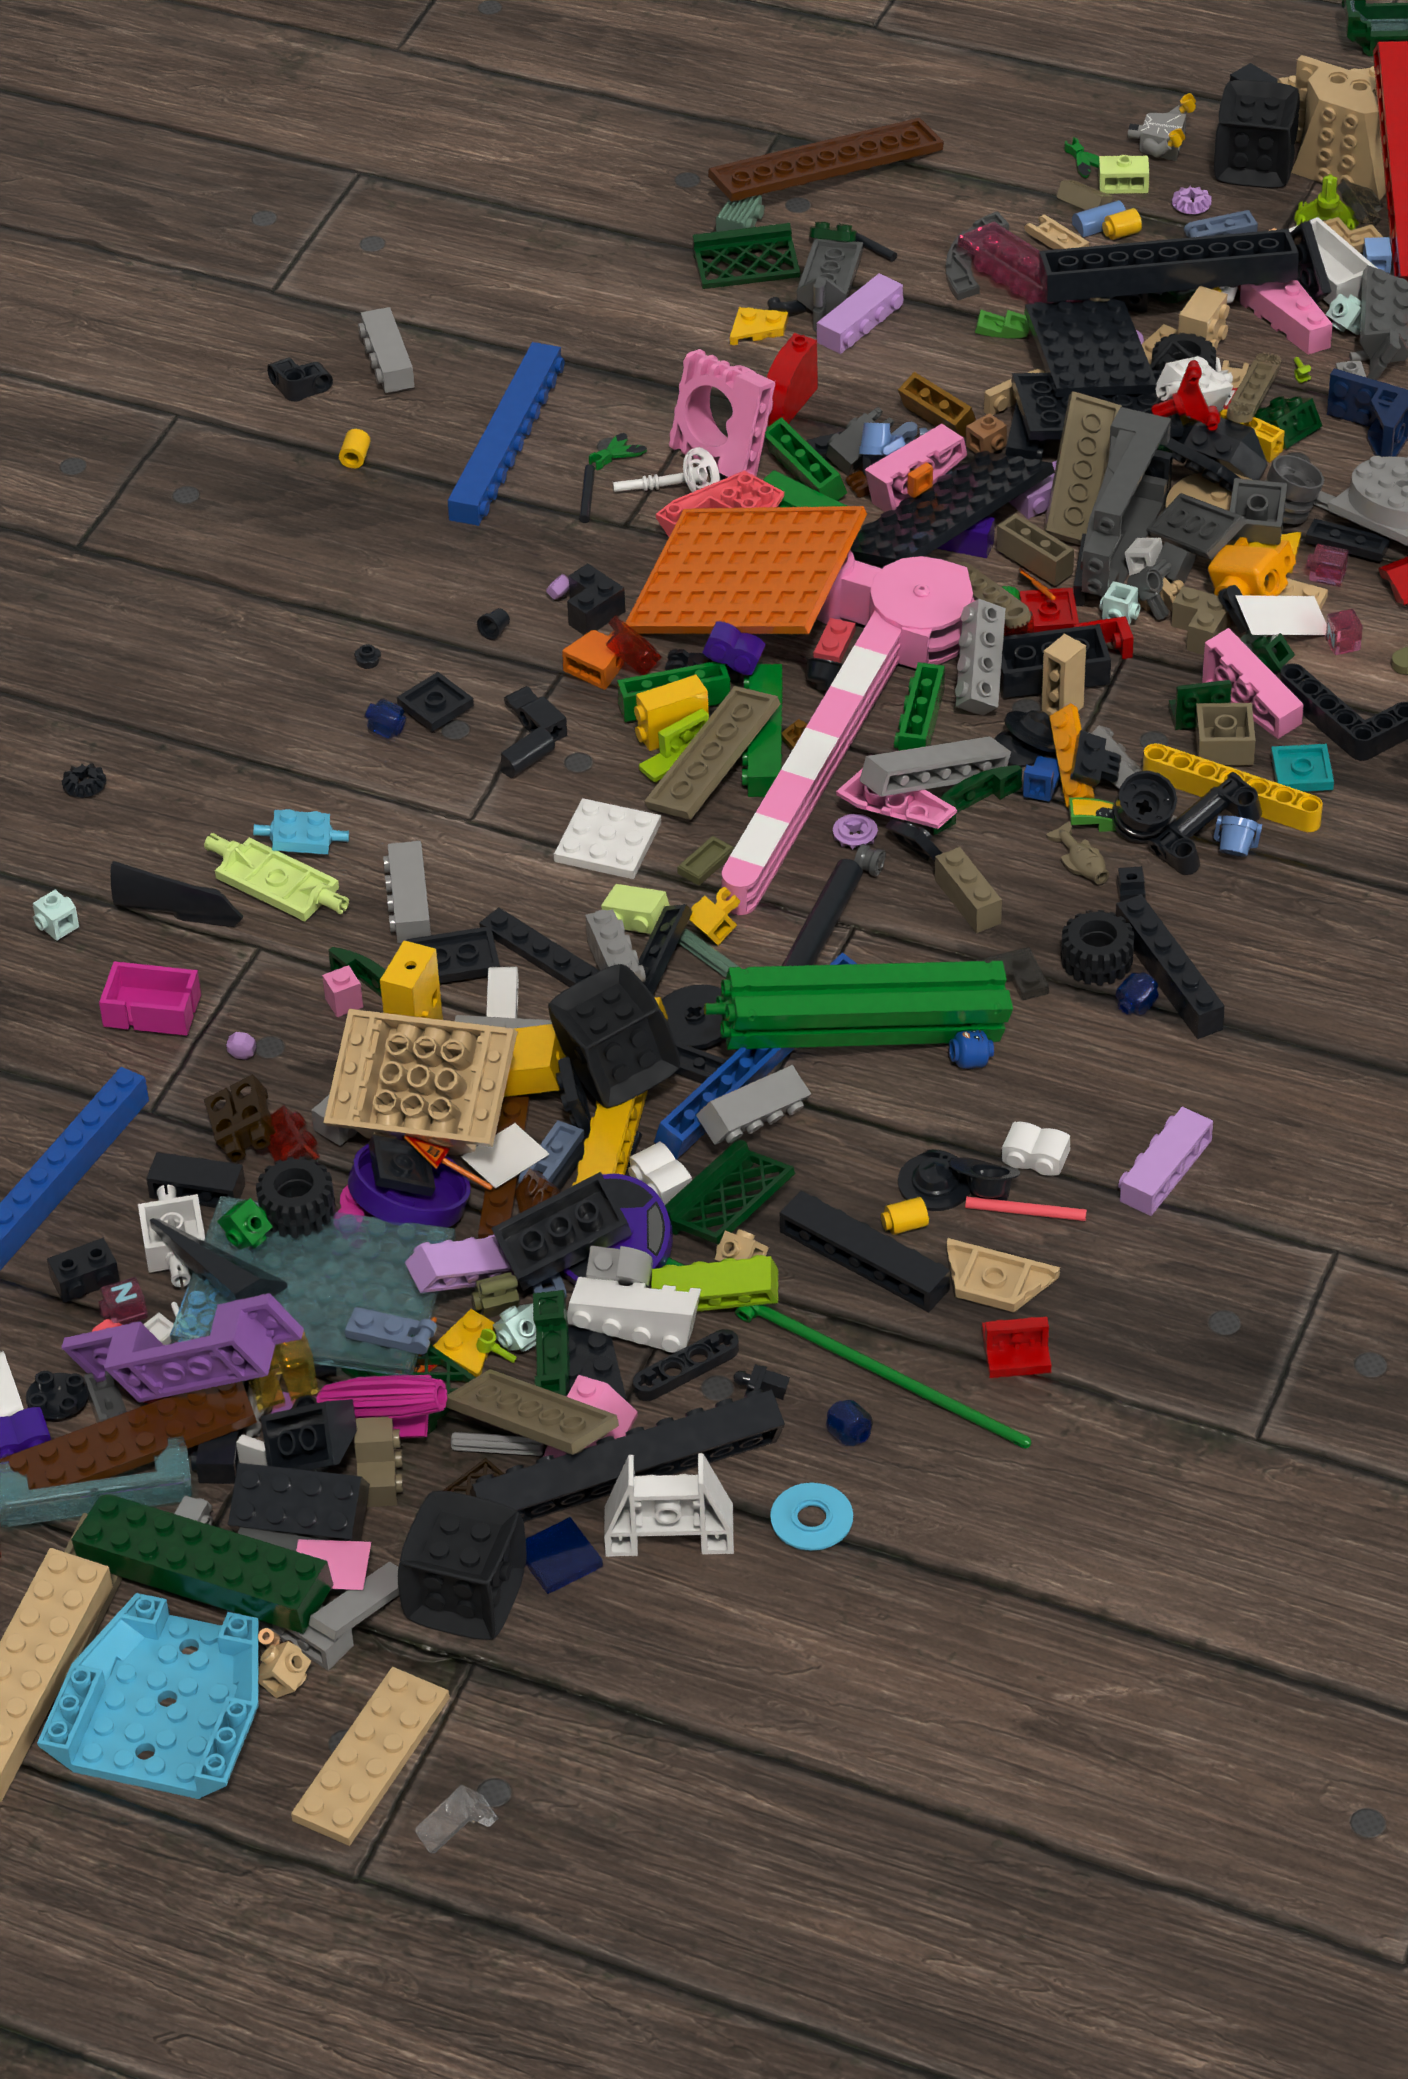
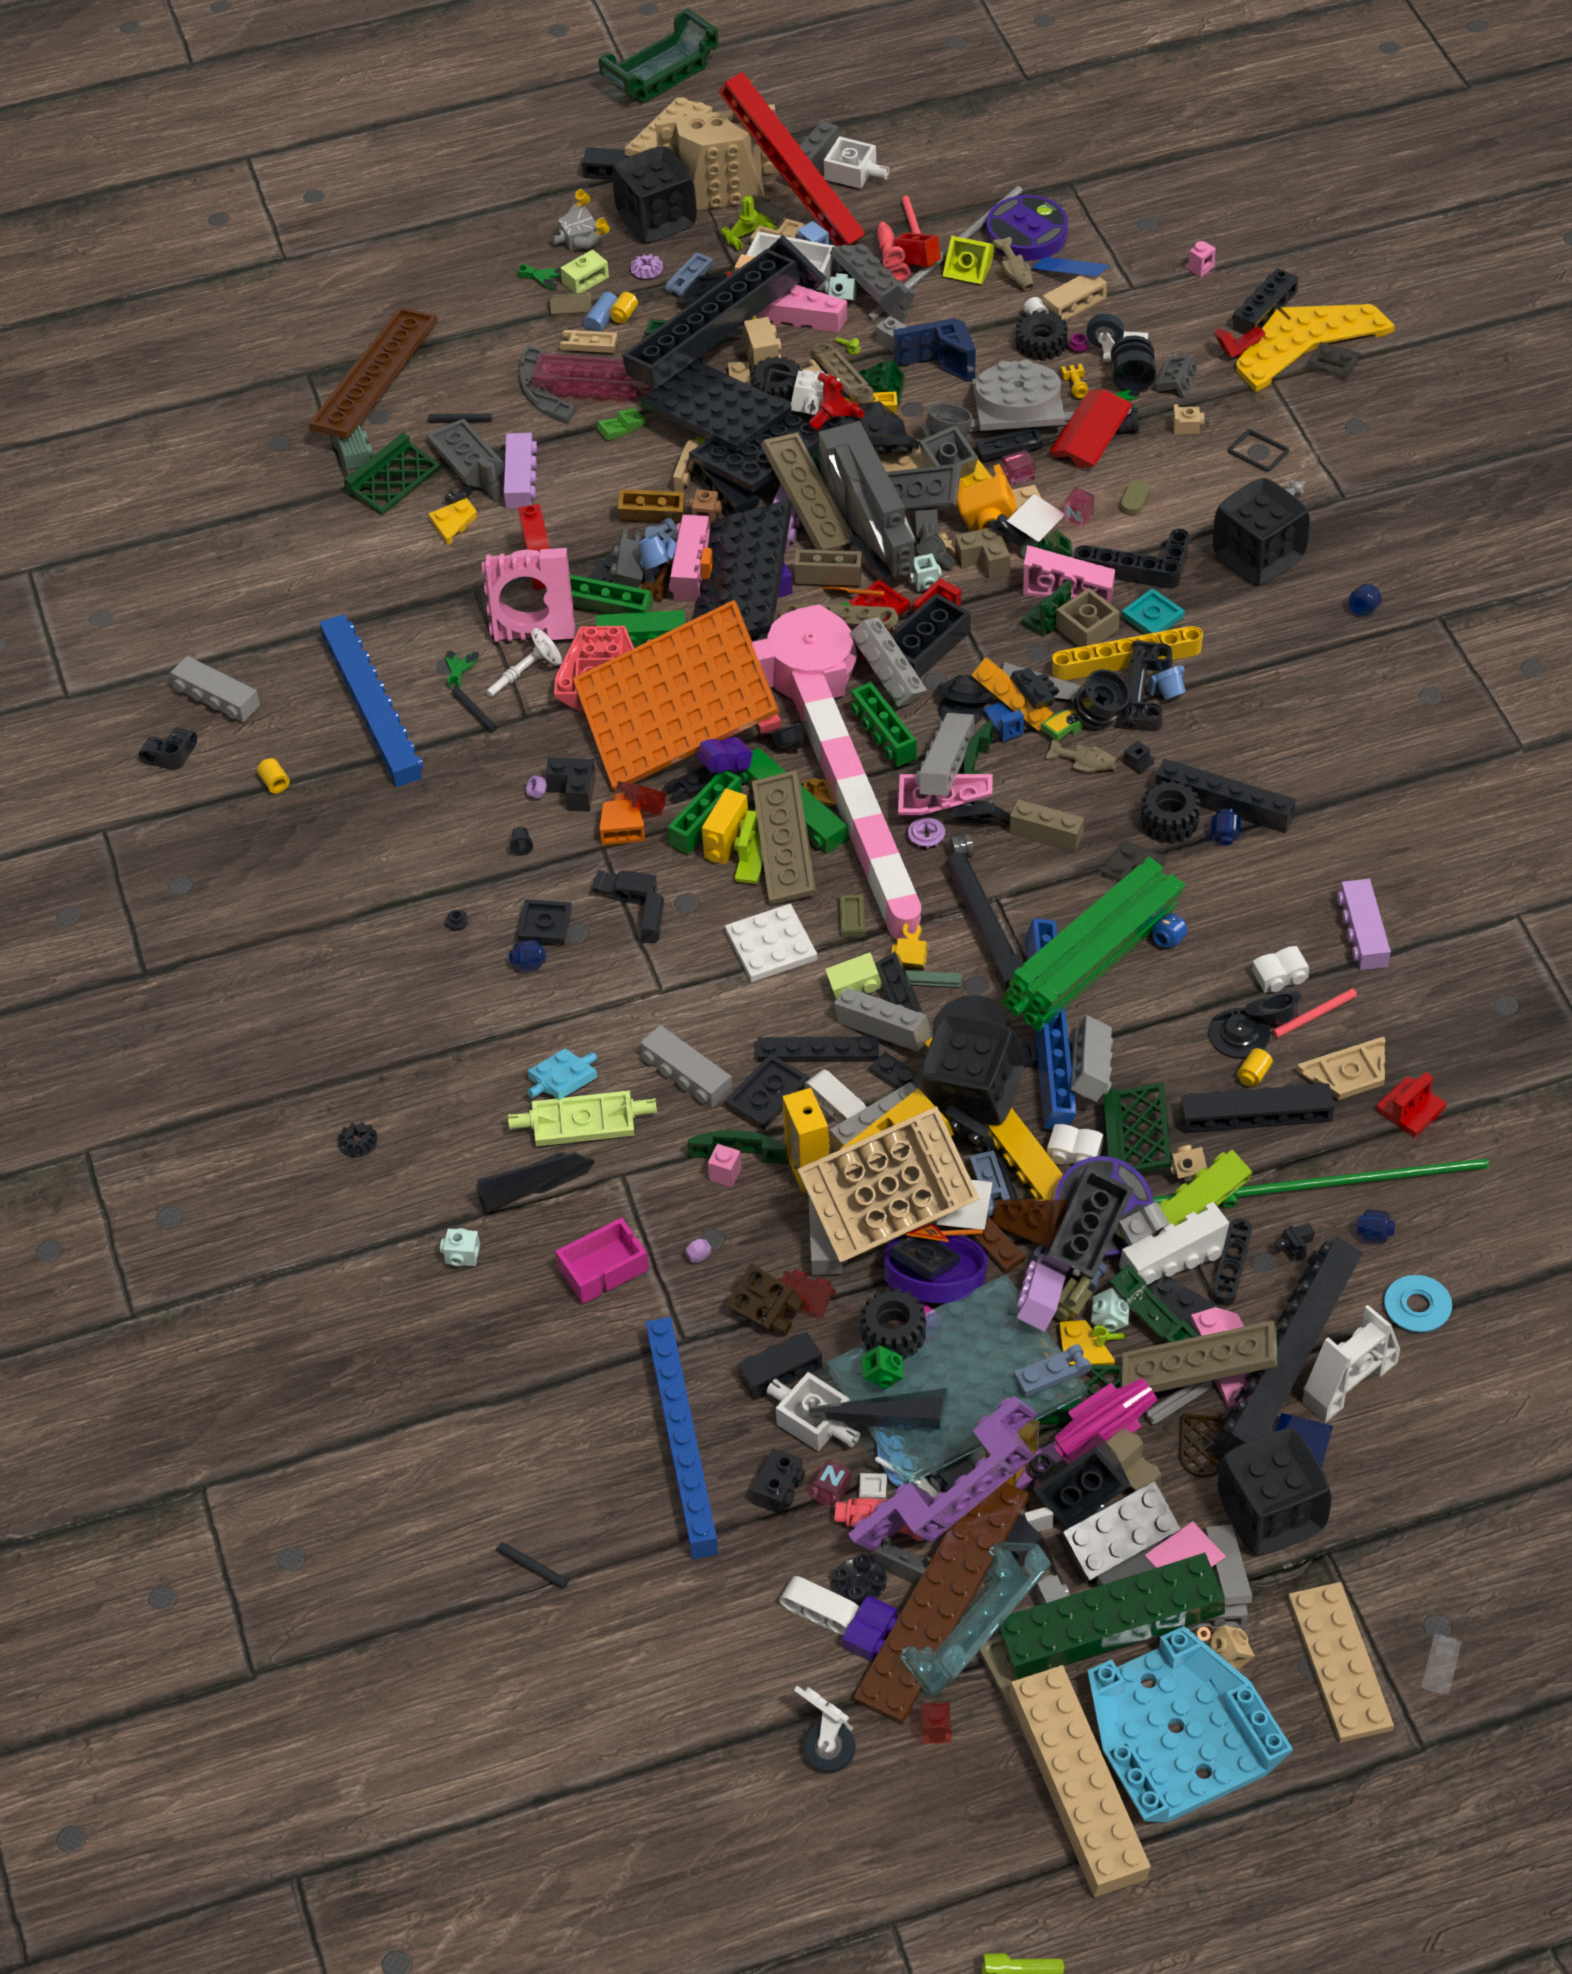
camera: 40 degrees left, 5 degrees up
(842, 233) = (427, 425): dark green plate -> none
(1063, 674) = (957, 643): tan brick -> none

